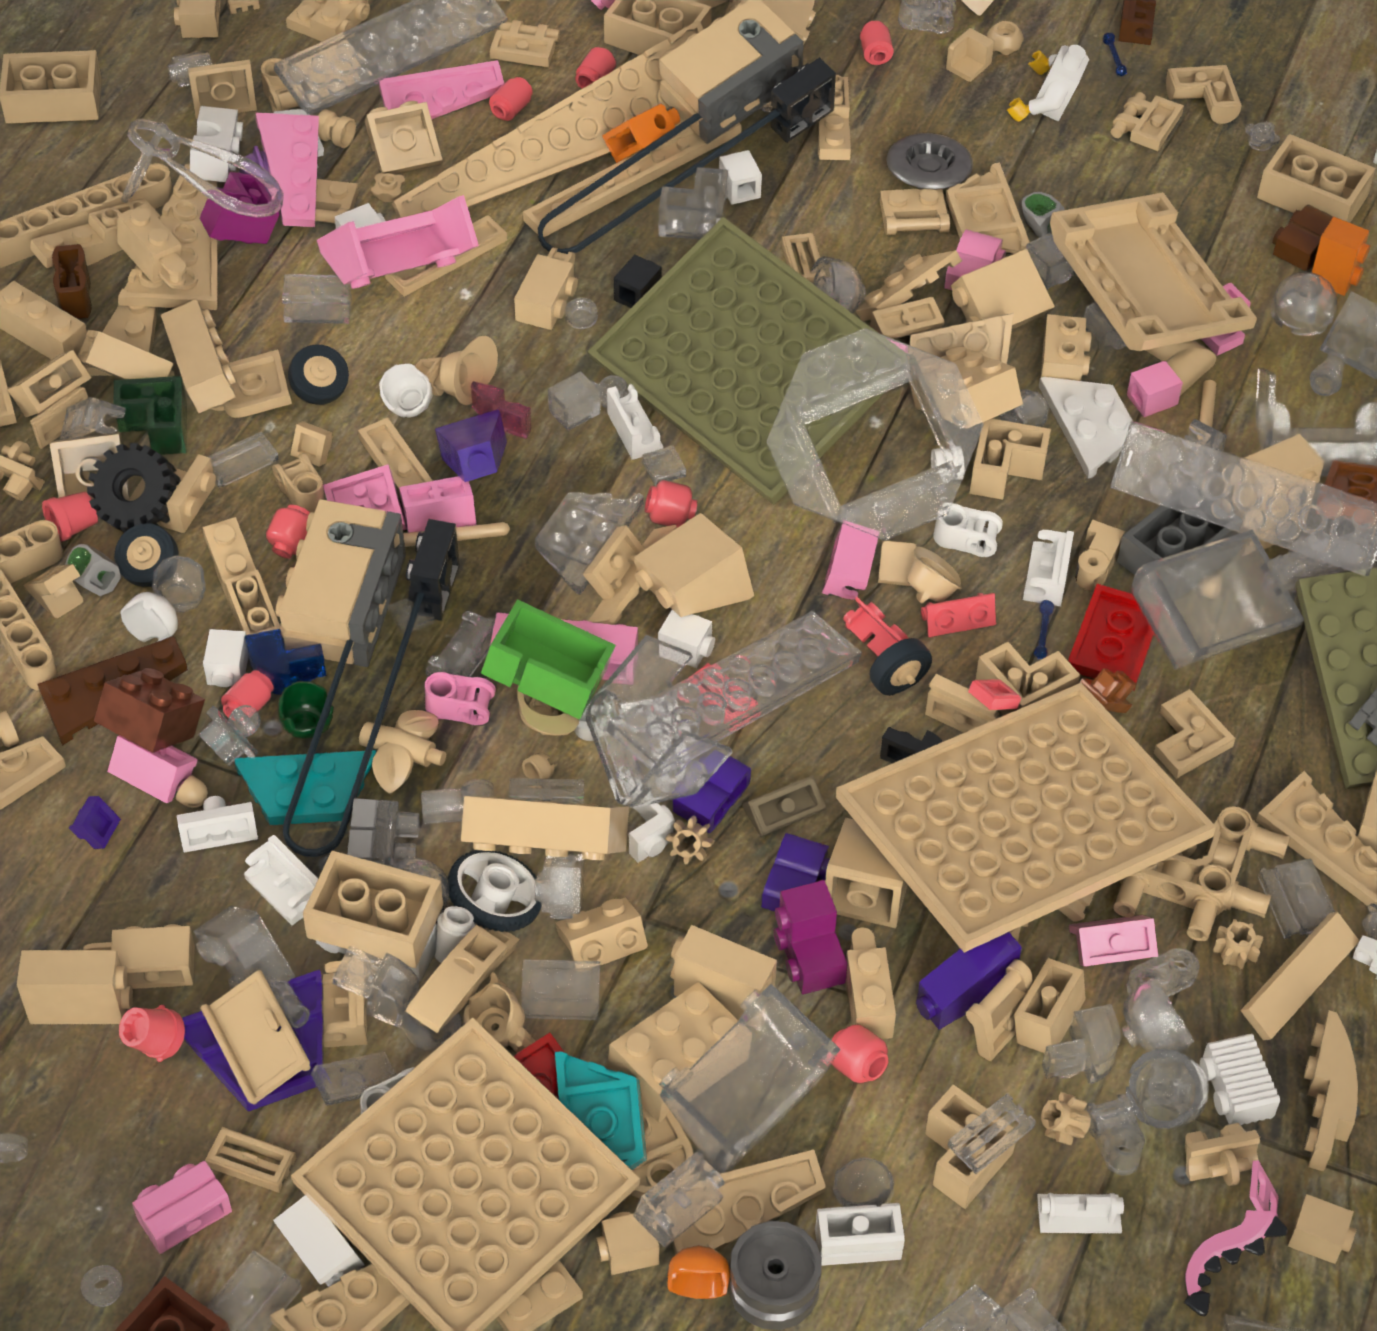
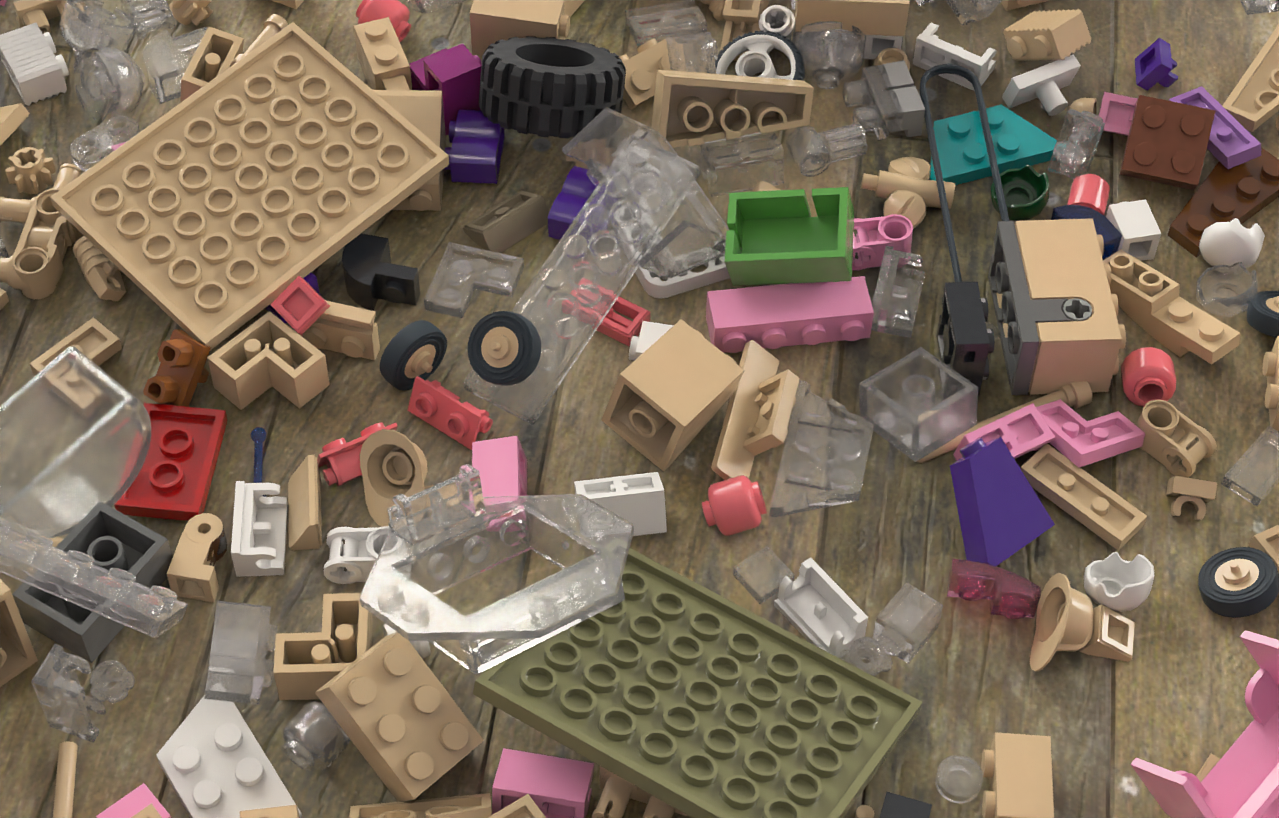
camera: 165 degrees right, 0 degrees up
(84, 738) = (1228, 138): none -> medium lavender plate
(191, 854) = (1047, 35): none -> tan brick
(495, 534) = (918, 403): none -> clear brick
(675, 838) = (549, 85): none -> black tyre
(760, 519) = (632, 497): none -> white hinge
(825, 630) = (504, 348): none -> black wheel
(836, 753) = (469, 269): none -> clear plate
(1010, 581) = (305, 506): none -> tan slope
(1073, 471) = (239, 653): none -> clear brick

